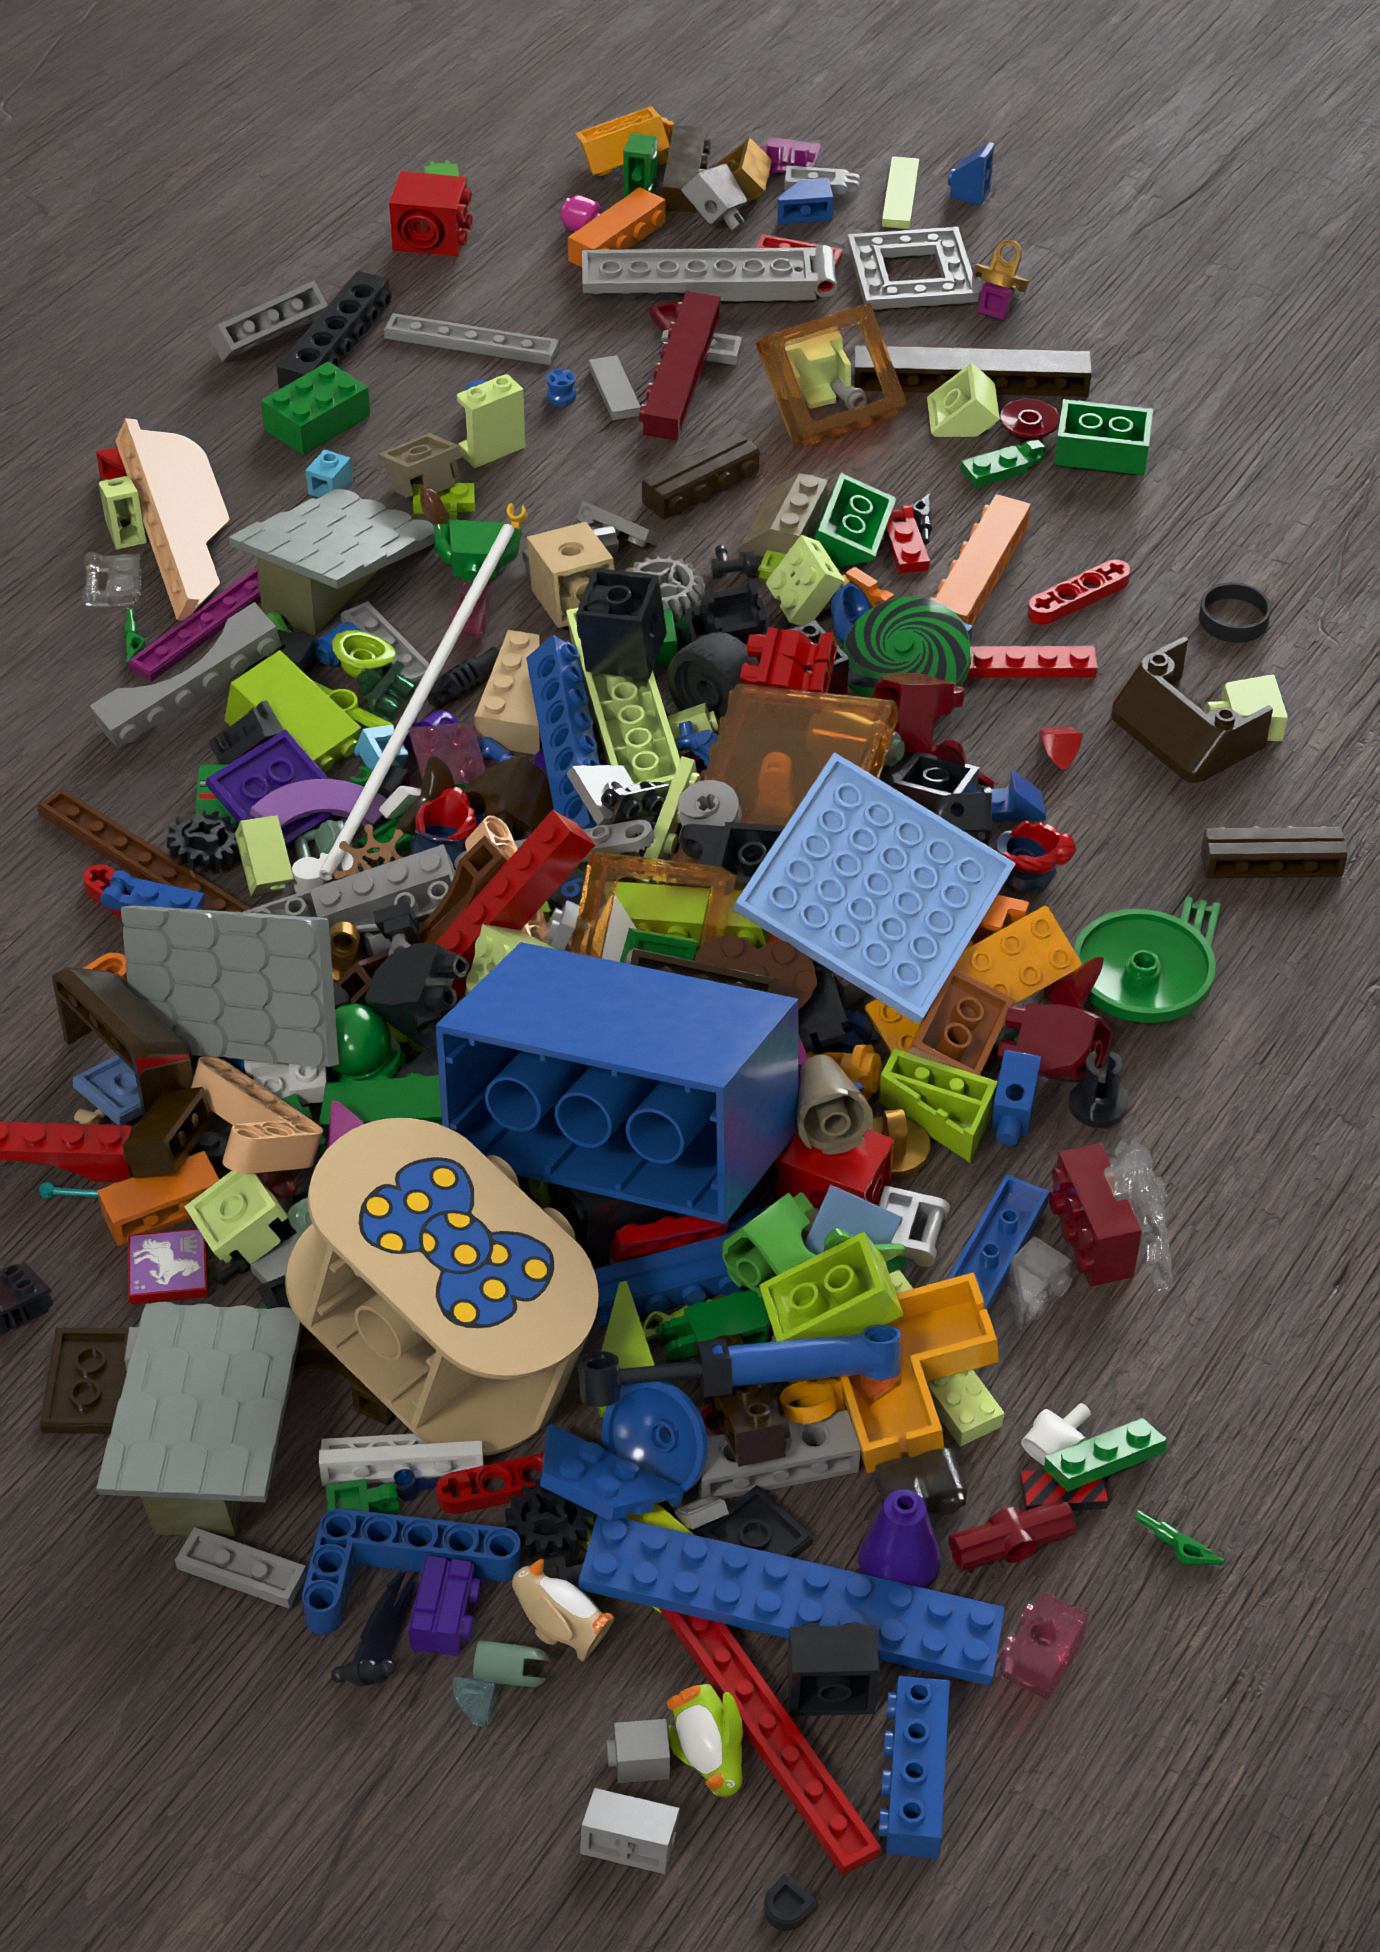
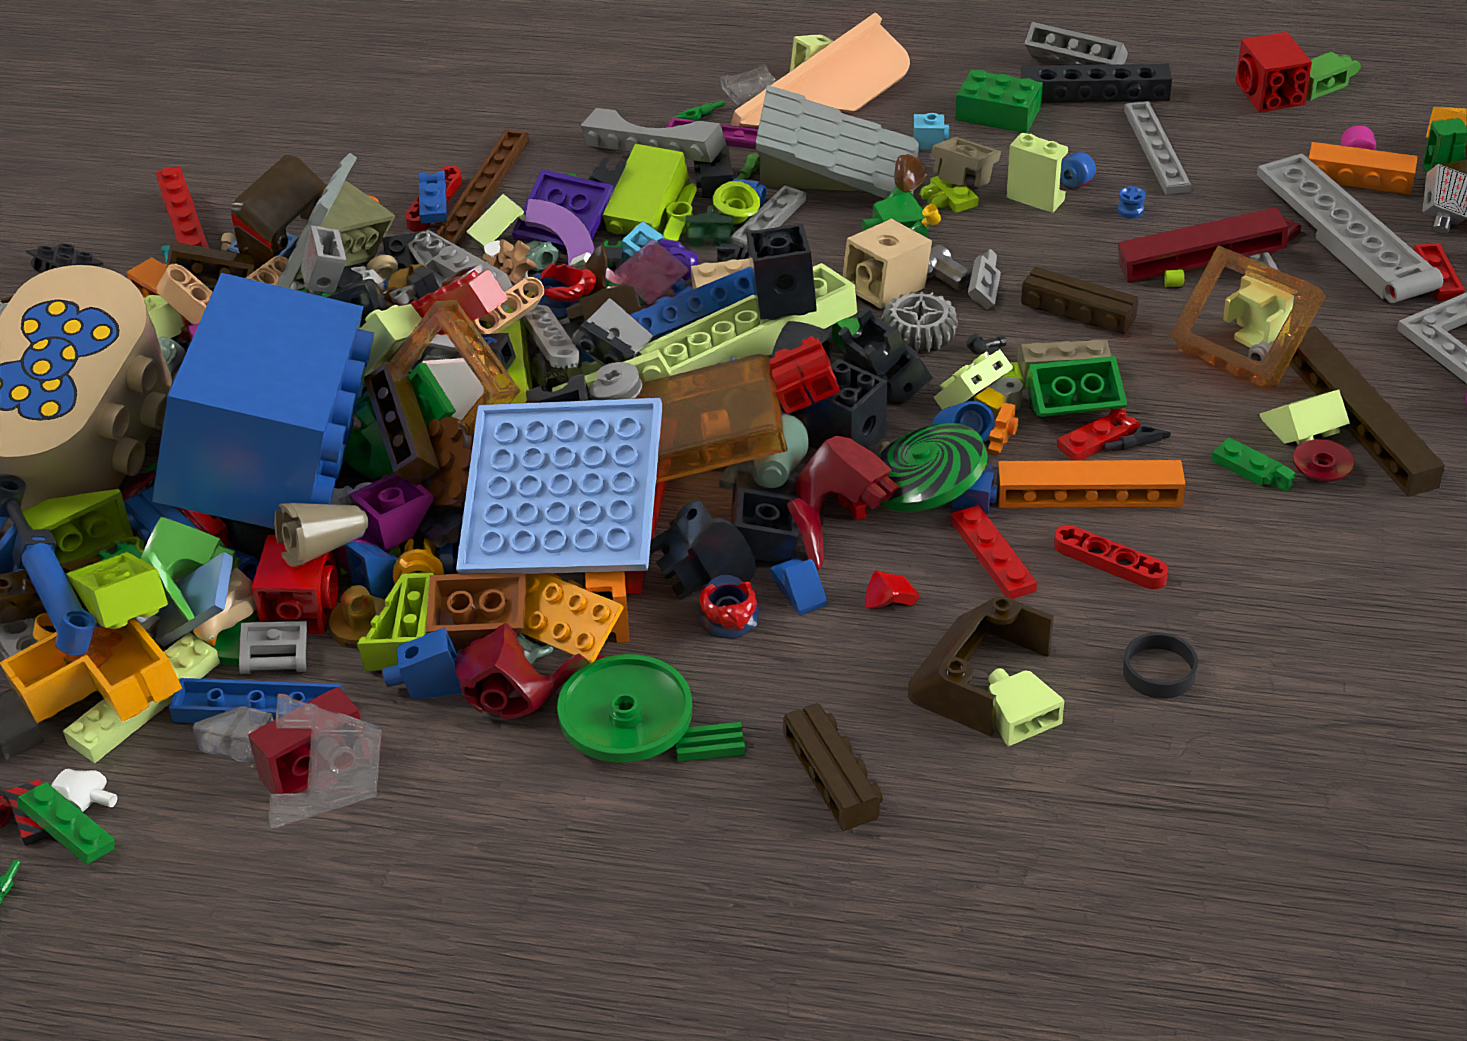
camera: 70 degrees right, 5 degrees down
(203, 840) = (513, 191): black gear -> none
(366, 973) = (323, 260): none -> light grey torso
(416, 703) = (703, 235): white piece -> none
(478, 619) = (828, 238): clear pink piece -> none
(614, 387) = (1171, 220): light grey tile -> none
(701, 407) = (1174, 278): none -> lime piece
(1097, 1099) = (458, 722): black piece -> none
(1103, 437) = (1330, 509): green brick -> none

